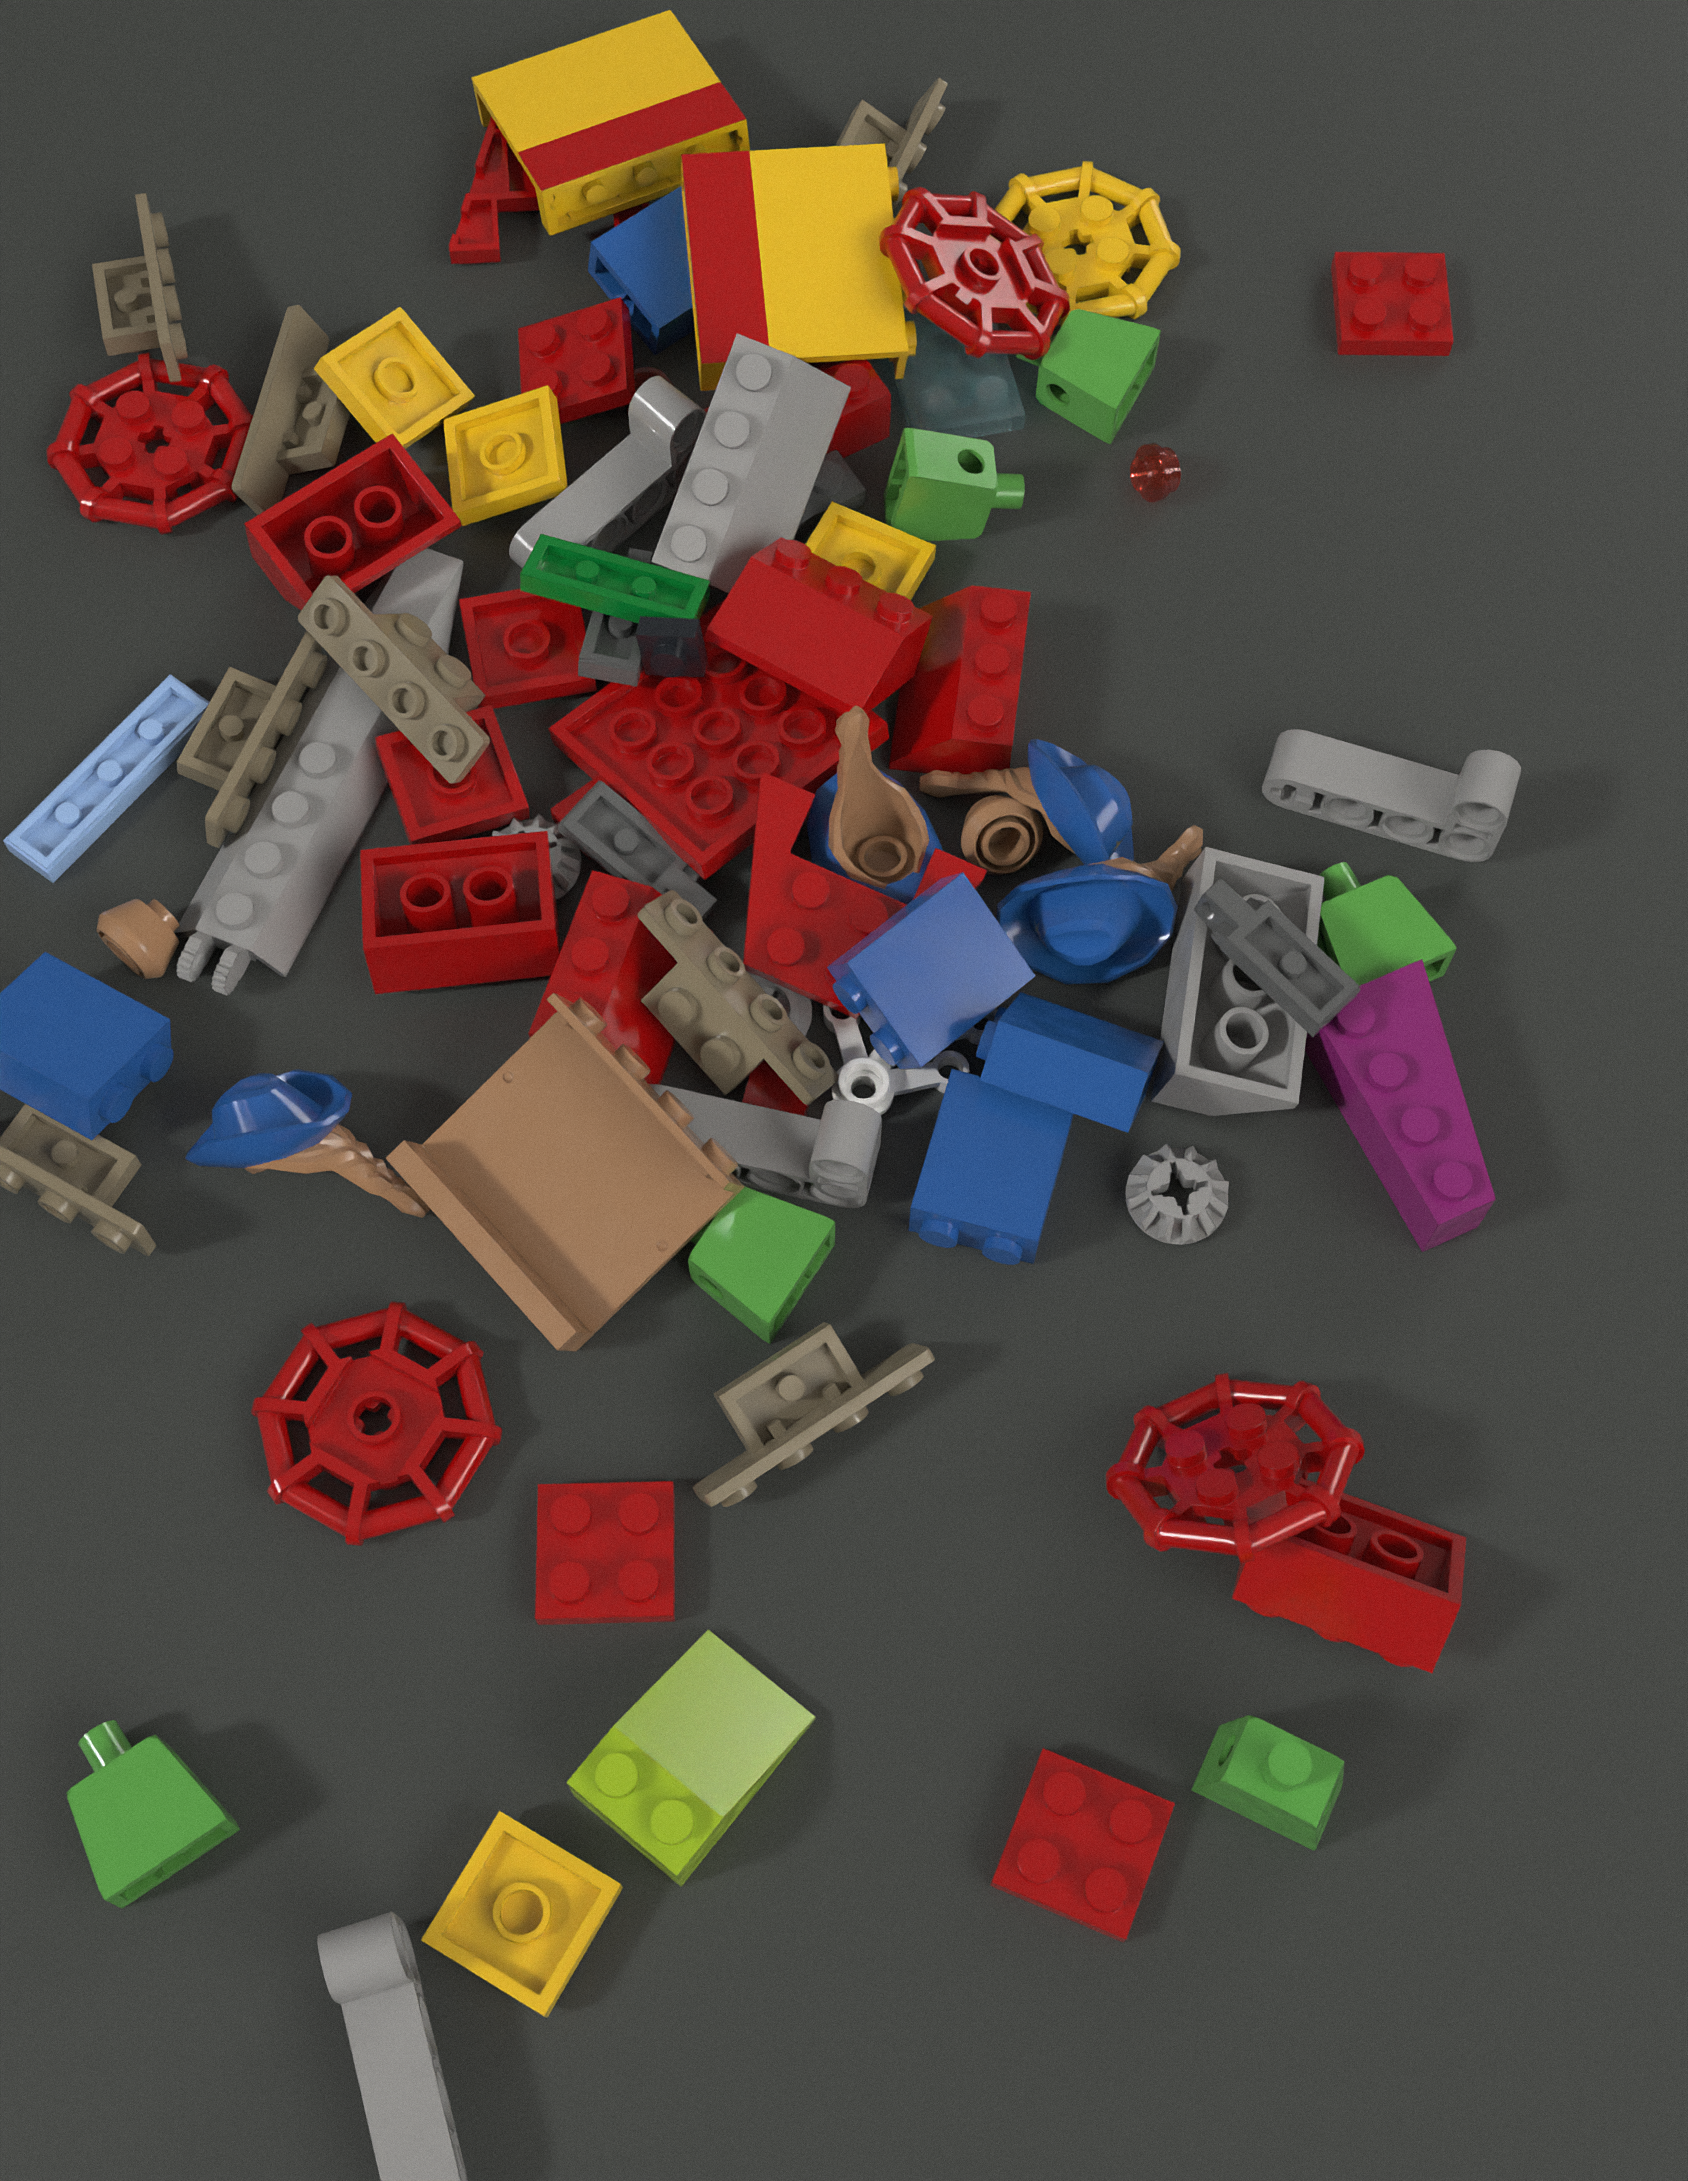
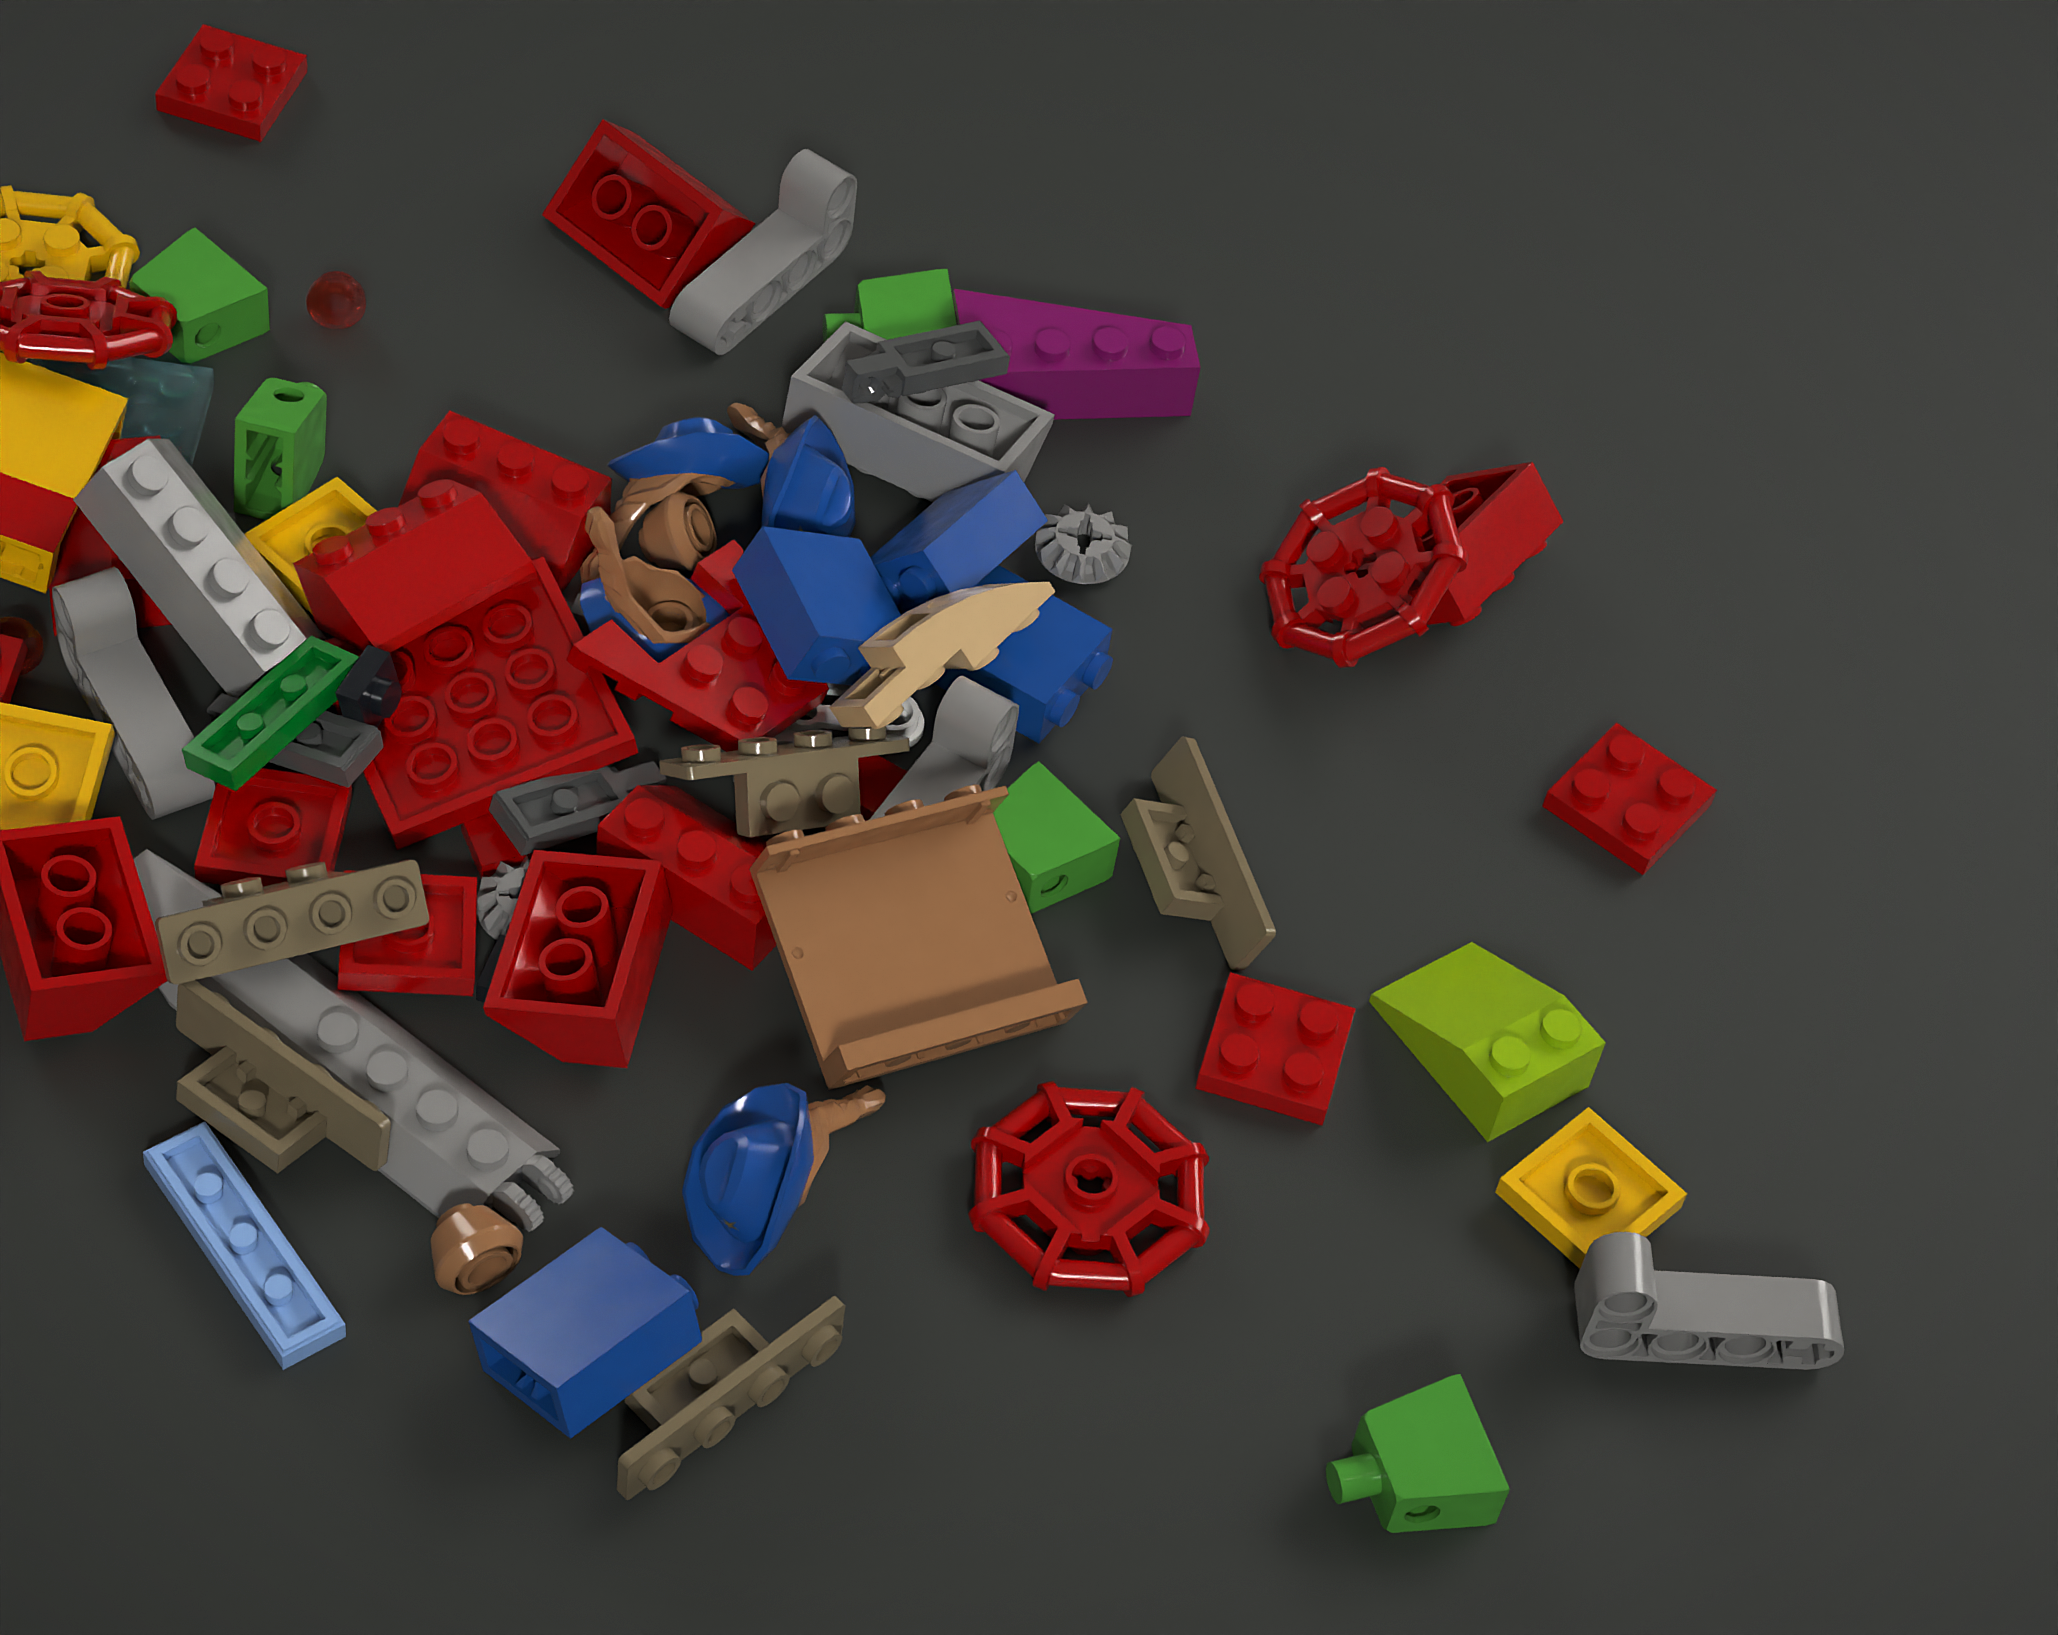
camera: 80 degrees left, 15 degrees down
(935, 1085) = (938, 635): none -> tan slope
(1271, 1778) = (1632, 630): bright green torso -> none
(1406, 671) = (643, 214): none -> red slope

